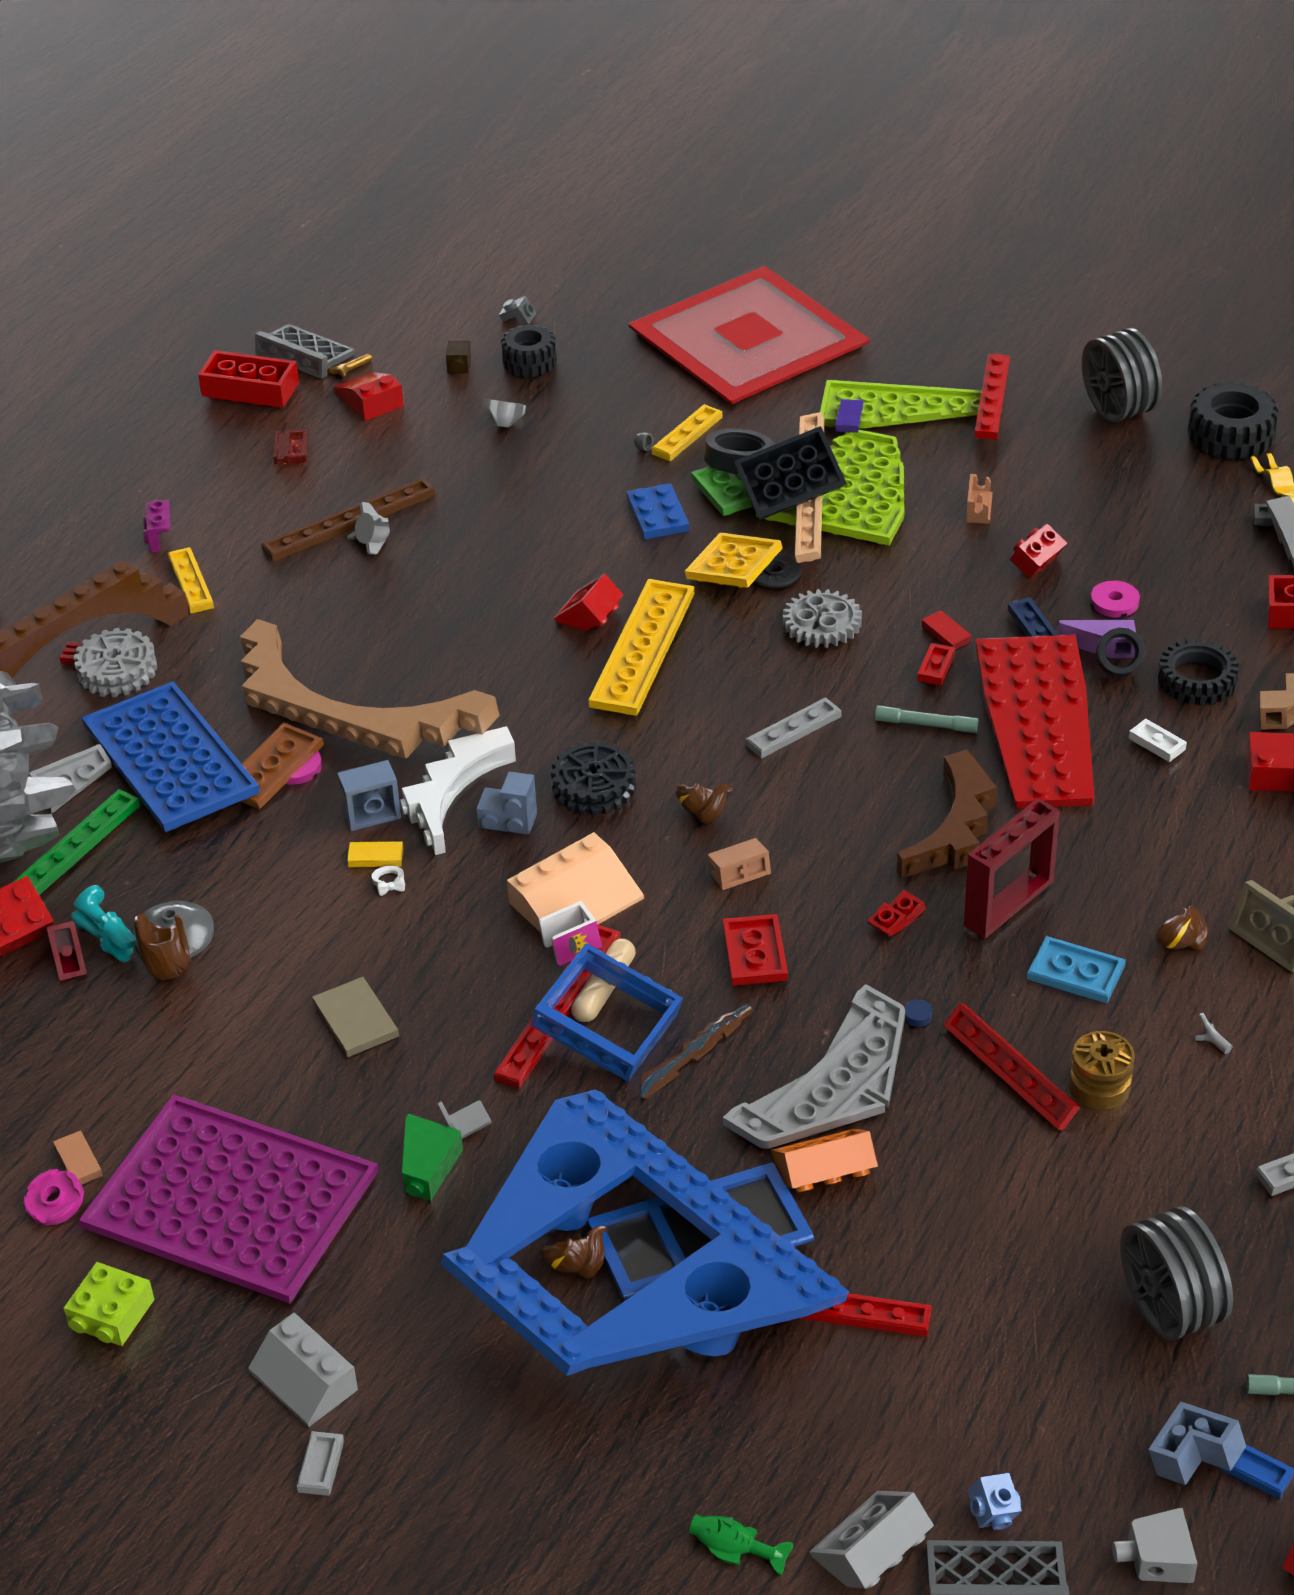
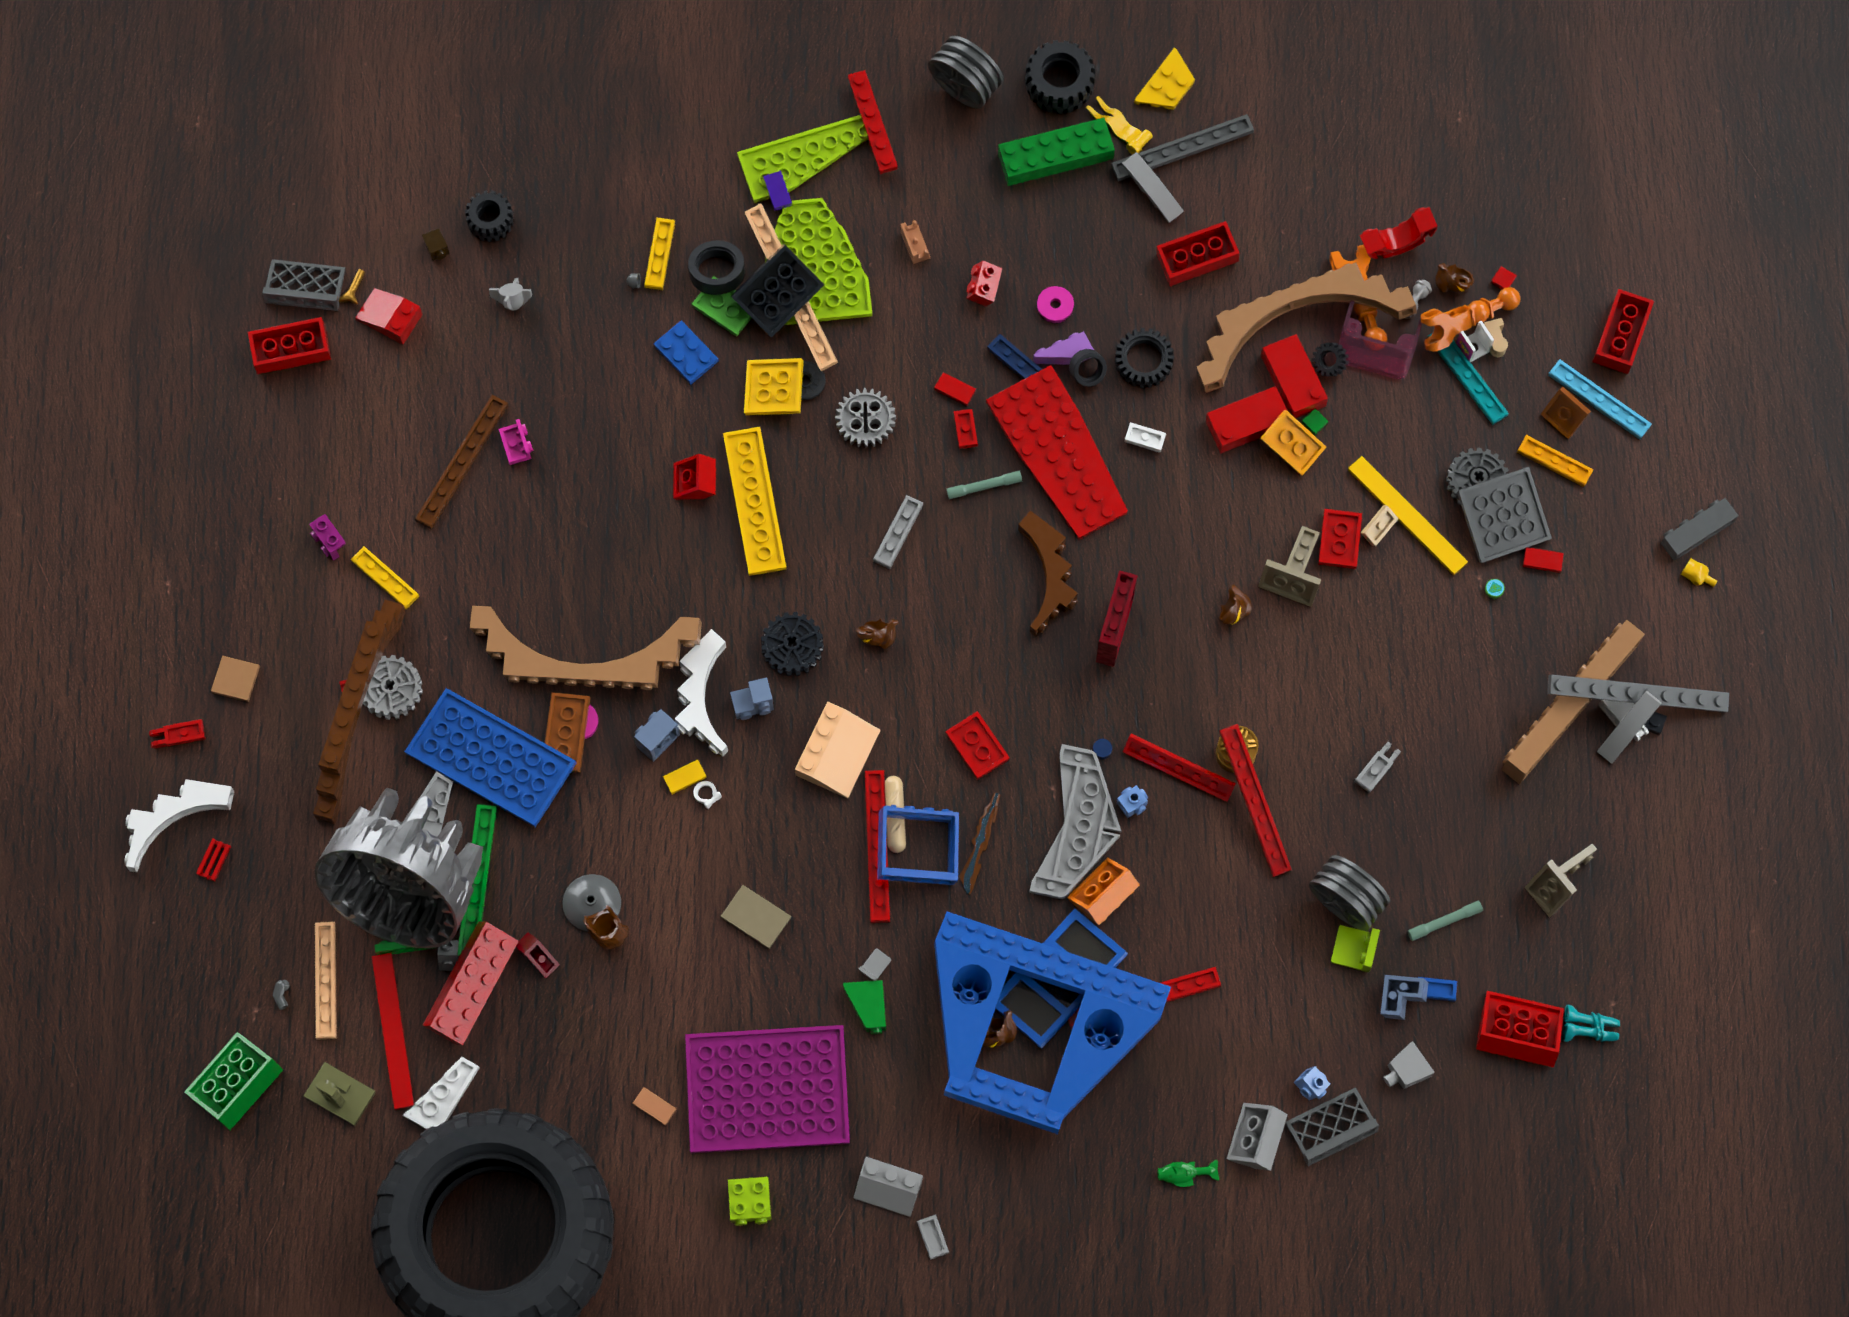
camera: 30 degrees left, 30 degrees up
(60, 1209) = (649, 1141): dark pink tile -> none
(107, 927) = (559, 928): teal piece -> none
(291, 446) = (368, 403): clear red plate -> none
(370, 529) = (491, 471): light grey piece -> none
(417, 519) = (515, 443): none -> dark pink bracket
(519, 307) = (447, 165): dark grey bracket -> none
(569, 931) = (852, 785): piece -> none
(740, 863) = (929, 676): nougat hinge -> none
(748, 334) = (644, 116): baseplate -> none
(897, 915) = (1049, 672): red slope -> none
(923, 1074) = (1132, 801): none -> medium blue brick
(1076, 969) = (1181, 666): dark azure tile -> none
(1095, 1129) = (1255, 800): none -> red tile
(1155, 1364) = (1355, 948): none -> lime bracket
(1192, 477) = (1056, 151): none -> green brick
(1213, 1036) = (1286, 684): light grey bar -> none

